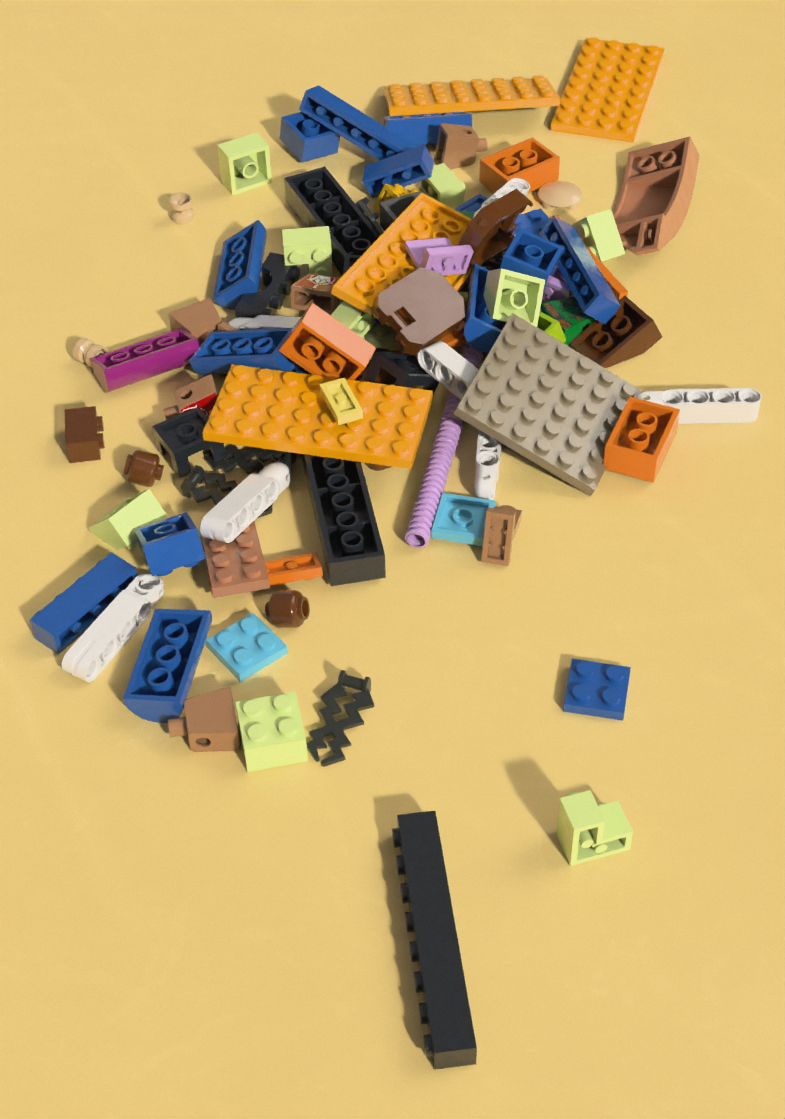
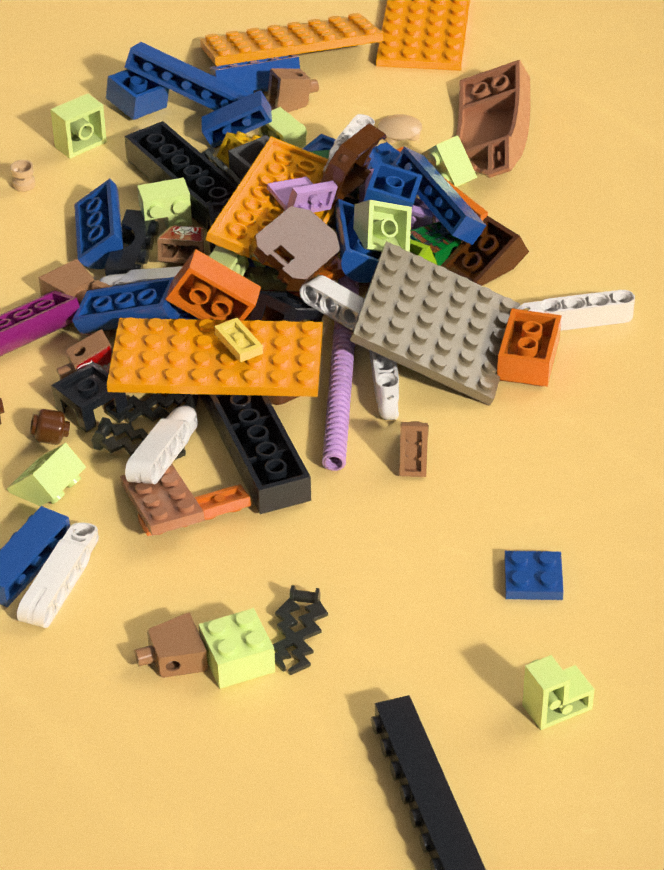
camera: 10 degrees left, 5 degrees down
(167, 663) = (122, 600): blue brick -> none
(170, 544) = (97, 492): blue brick -> none
(246, 647) = (192, 578): medium azure plate -> none
(287, 609) = (224, 538): reddish brown head -> none
(461, 519) = (374, 439): medium azure plate -> none
(524, 160) = (356, 97): orange brick -> none

